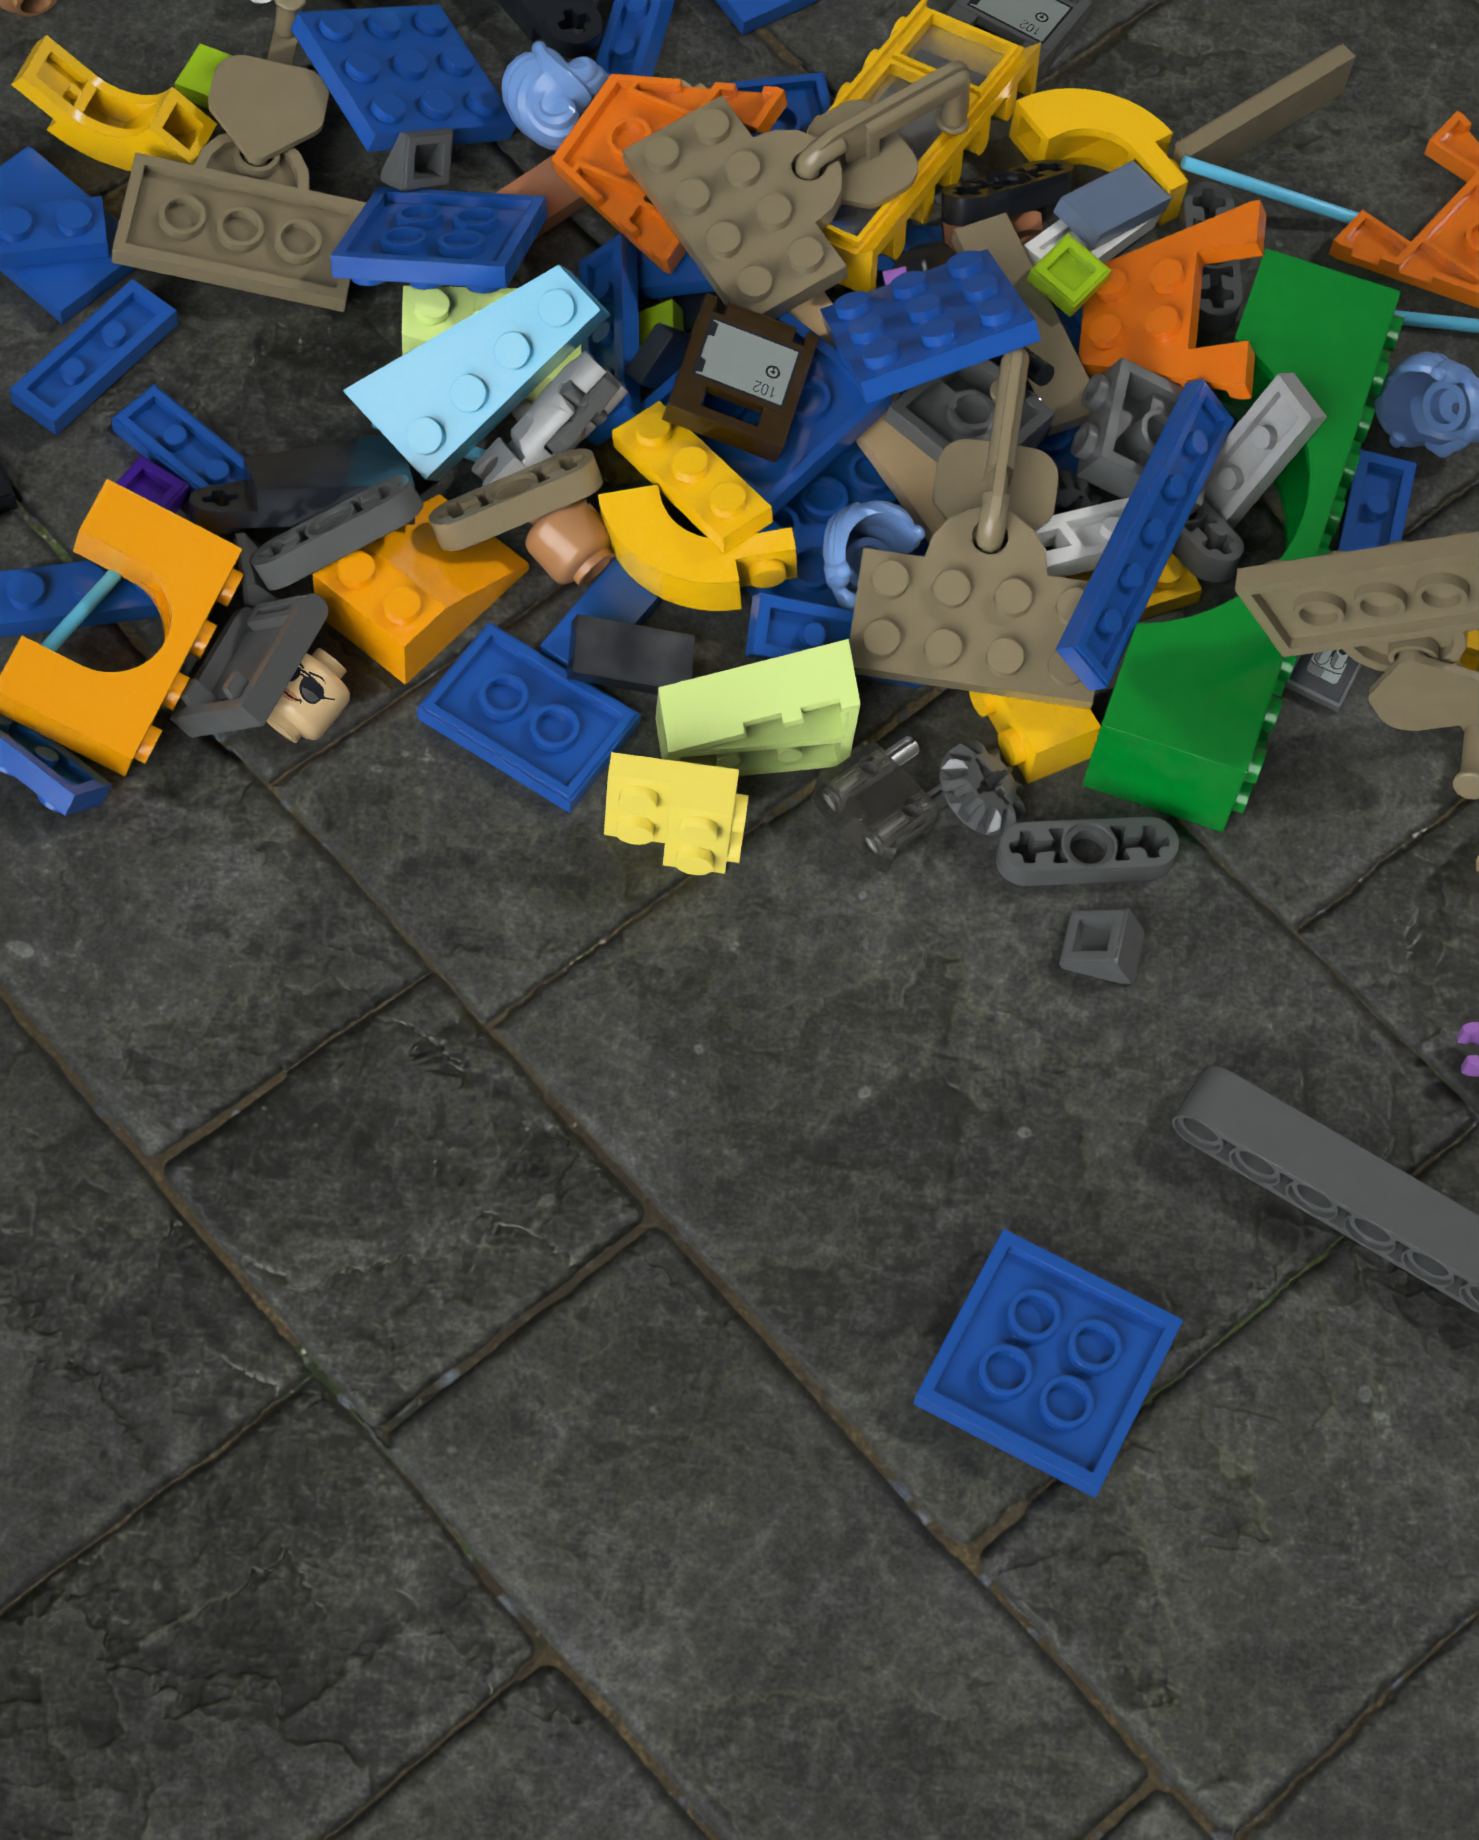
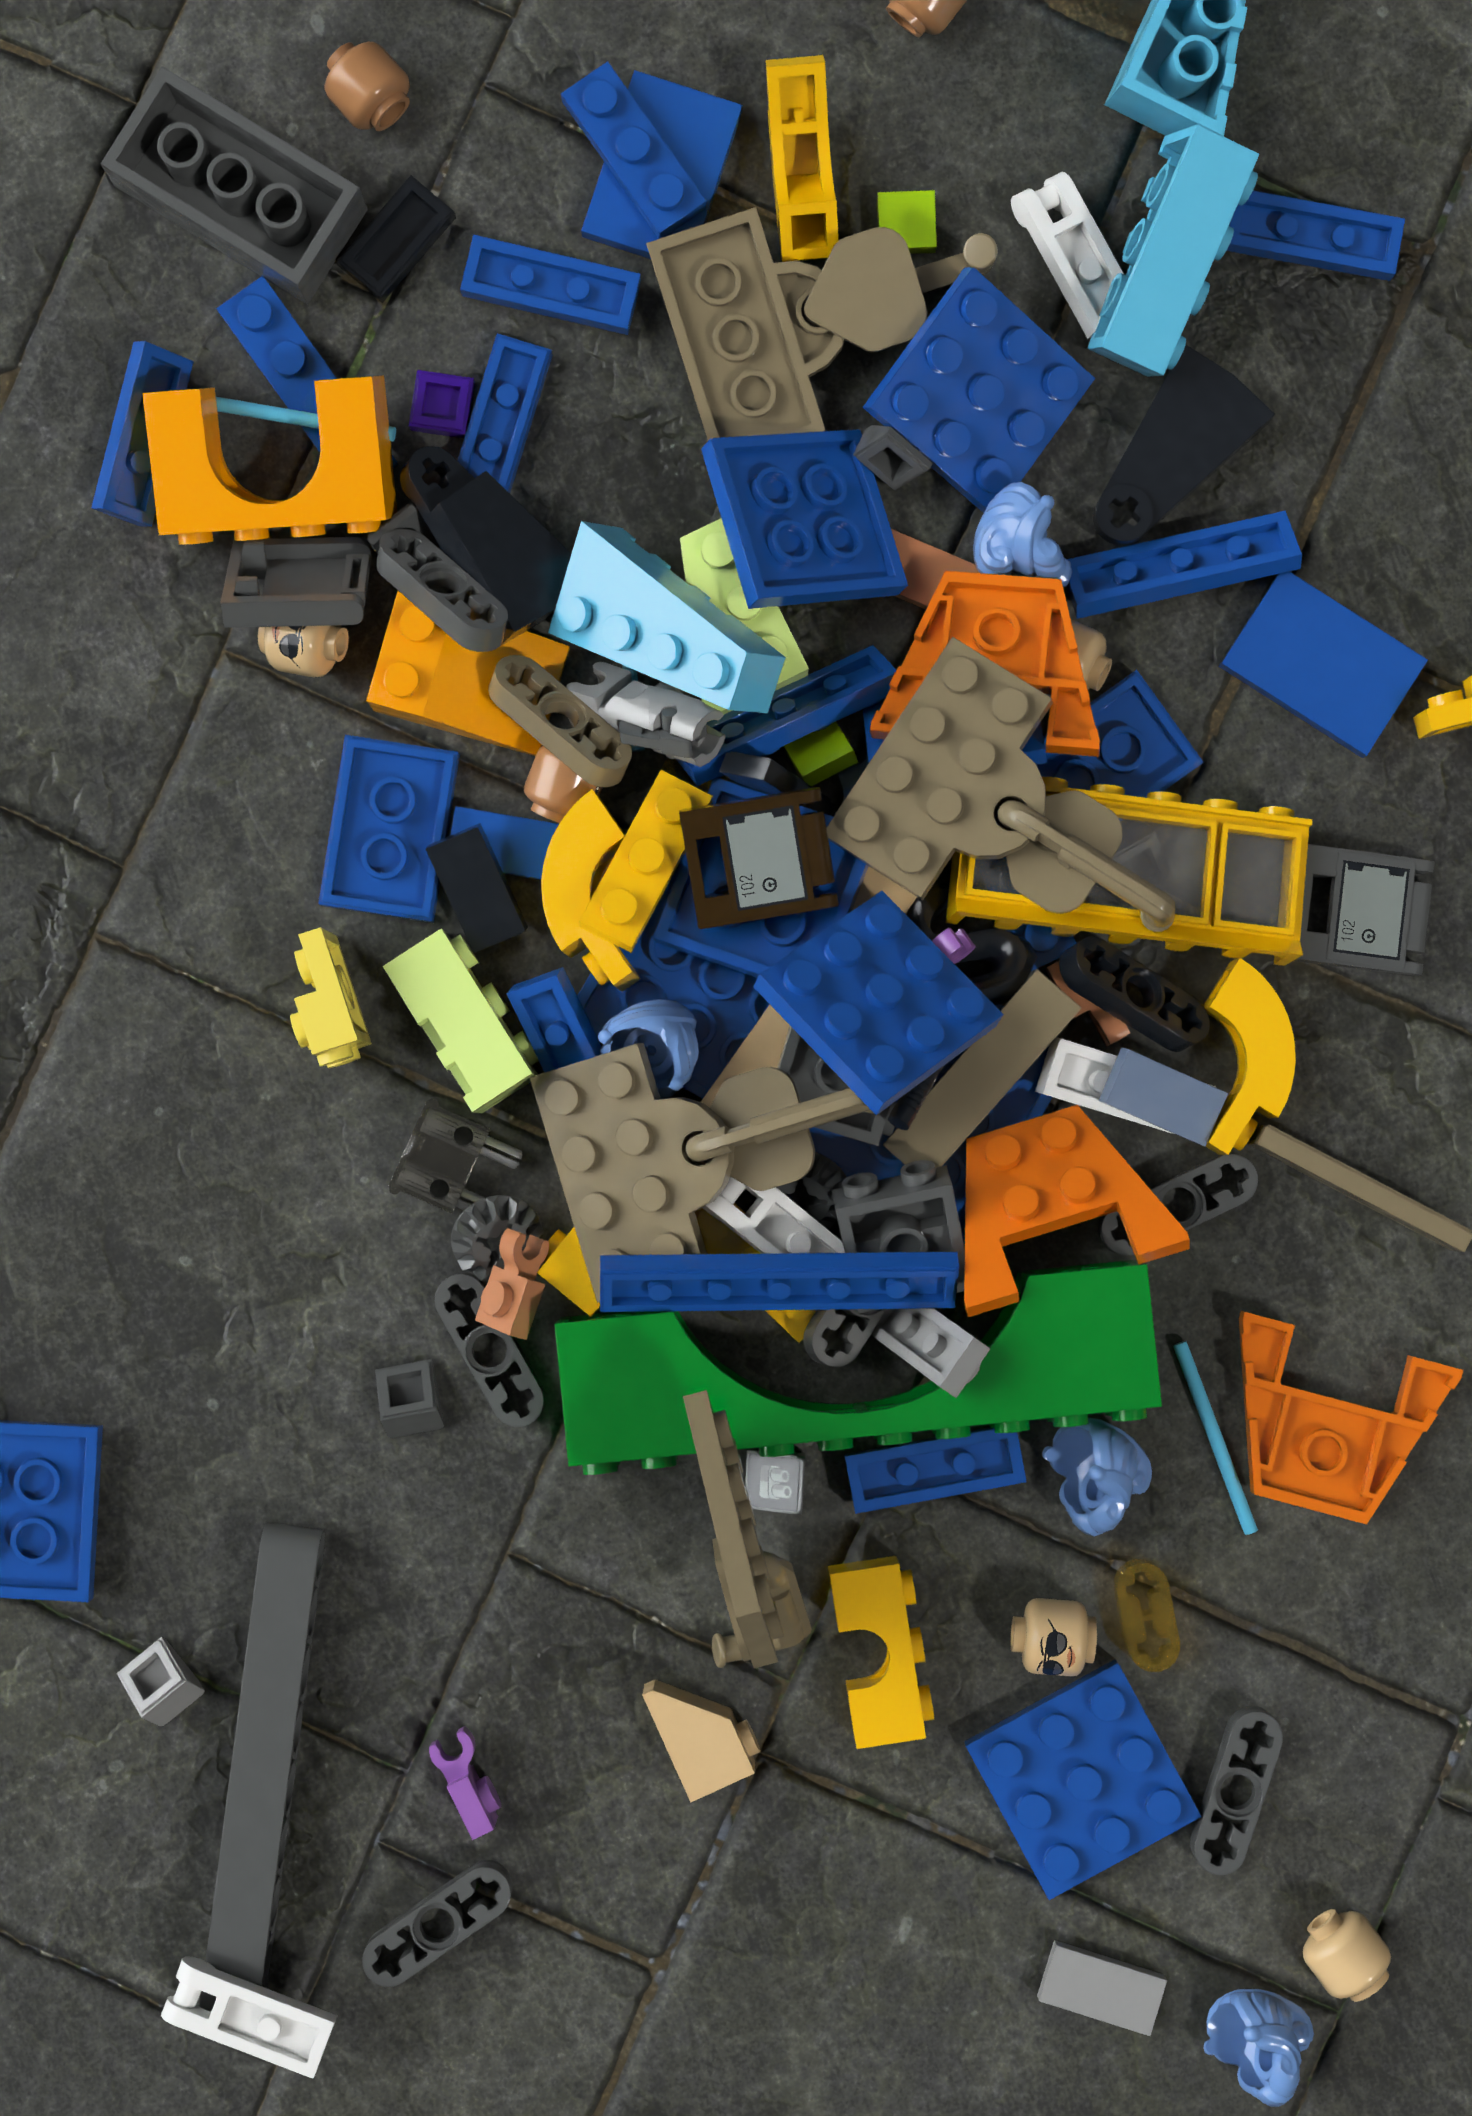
camera: 70 degrees right, 25 degrees up
(1049, 781) = (512, 1291): none -> nougat plate
(1069, 275) = (1039, 1094): lime tile -> none
(1267, 189) = (1273, 1233): medium azure axle -> none
(1293, 1303) = (160, 1683): none -> light grey slope

